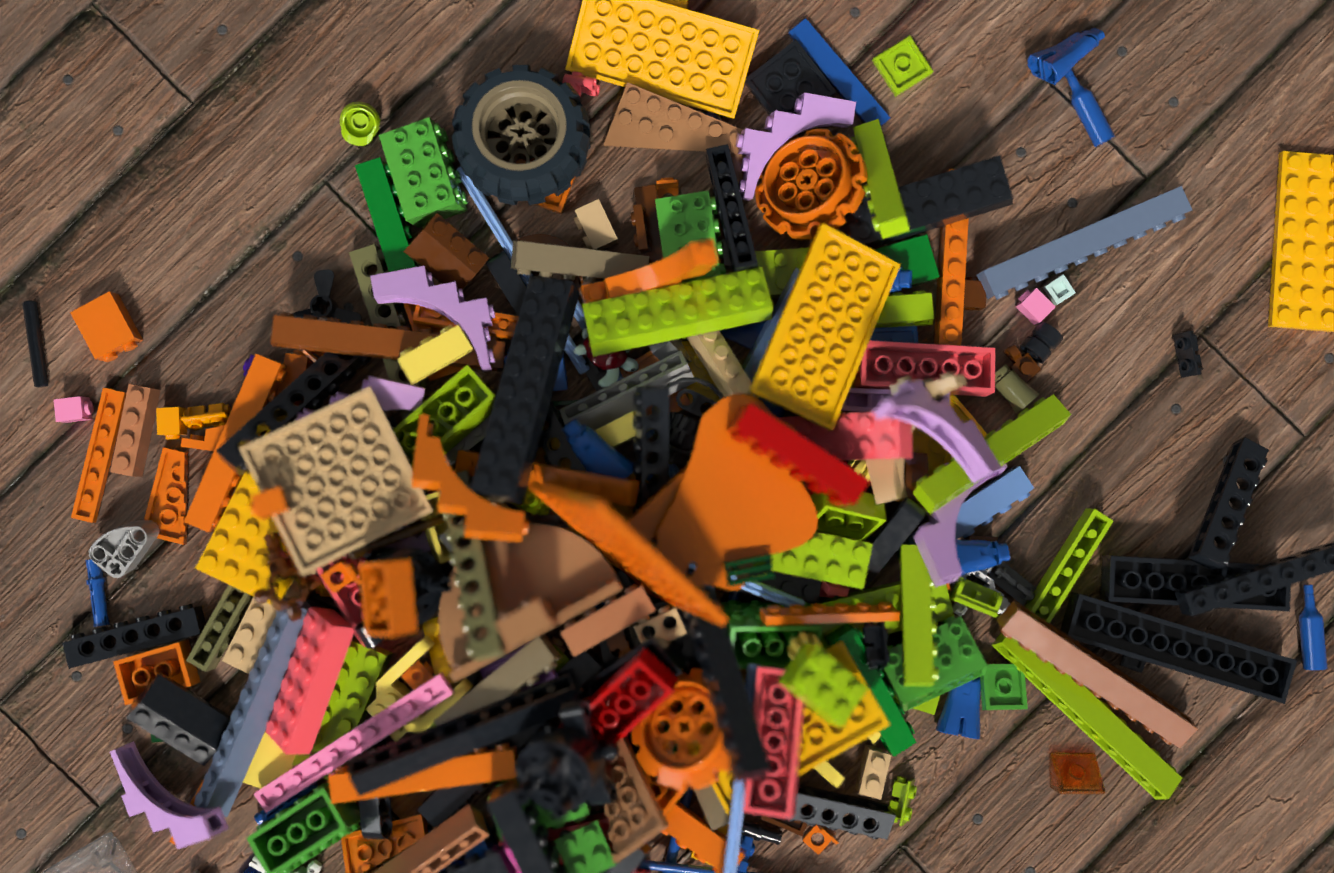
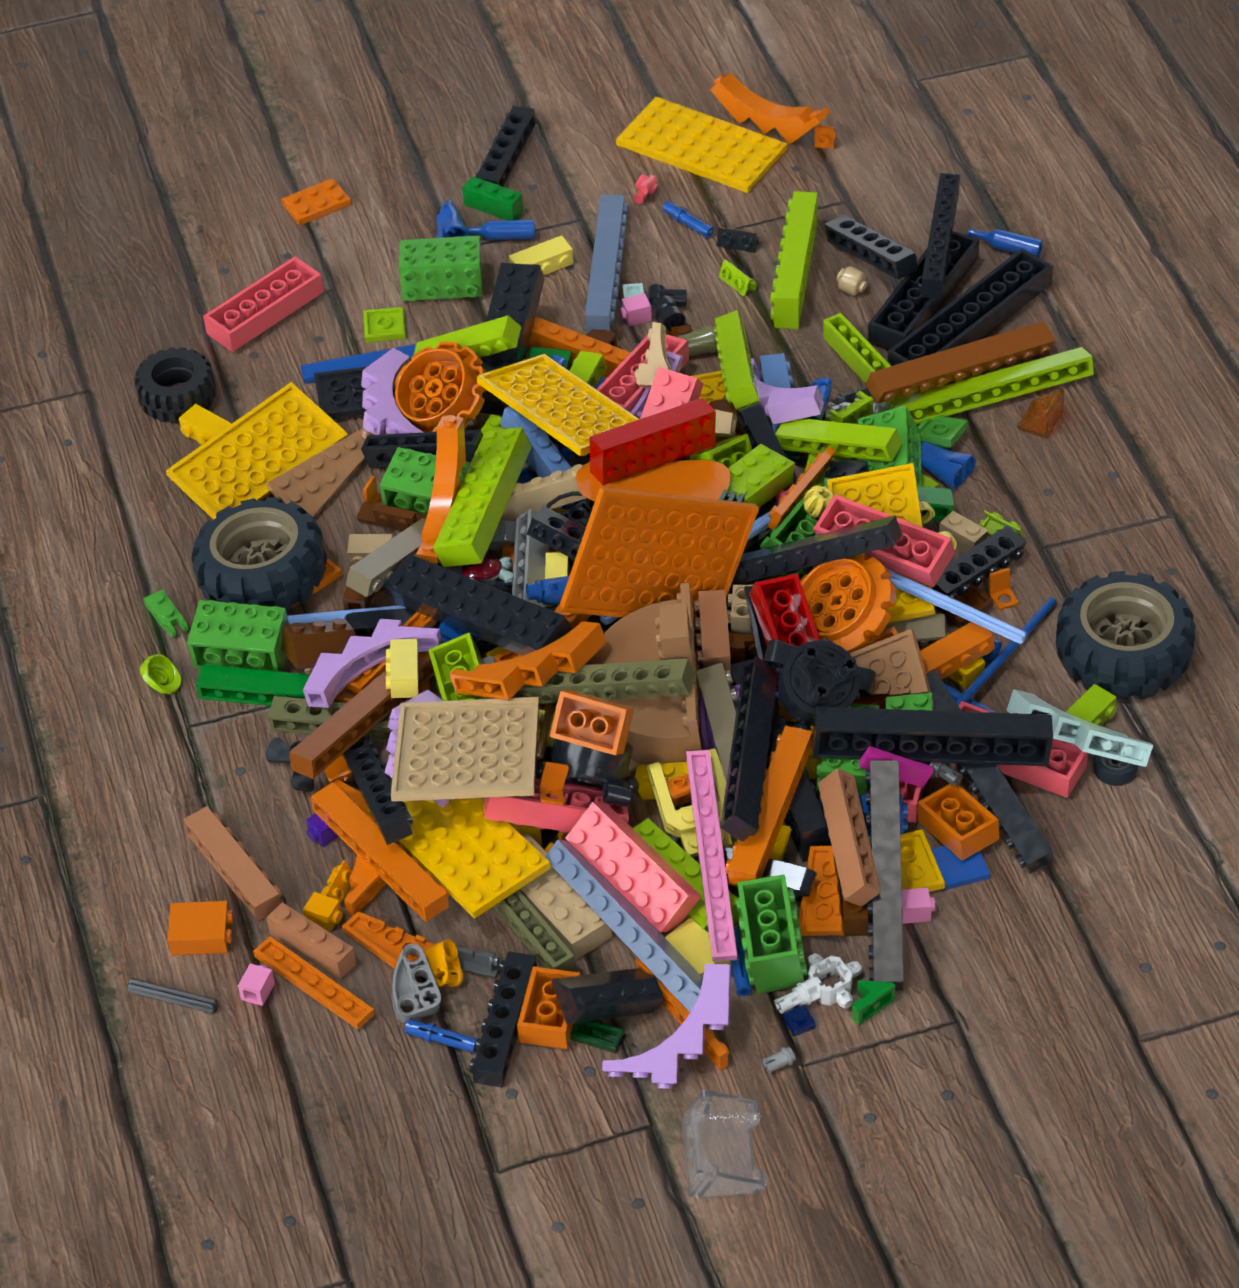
camera: 55 degrees left, 40 degrees down
(158, 558) = (443, 962): none -> light orange piece
(186, 314) = (233, 863): none -> nougat brick
(186, 578) = (478, 962): none -> dark grey hinge
(269, 503) = (455, 778): orange brick -> none
(281, 569) = (531, 832): reddish brown piece -> none
(439, 81) = (165, 612): none -> bright green hinge
(823, 684) = (850, 480): lime brick -> none
(939, 420) = (693, 353): lavender arch -> none
(994, 83) = (441, 268): none -> bright green brick
(1063, 173) = (549, 255): none -> light yellow brick
(1065, 321) = (657, 290): none -> black piece
(1128, 75) = (492, 199): none -> green brick
(1133, 373) = (735, 278): none -> lime hinge
(1177, 501) = (851, 280): none -> tan head
(1178, 432) = (794, 260): none -> lime brick
(1194, 289) = (681, 215): none -> blue pin
(1223, 223) = (645, 185): none -> coral plate
(1265, 32) = (507, 145): none -> black brick

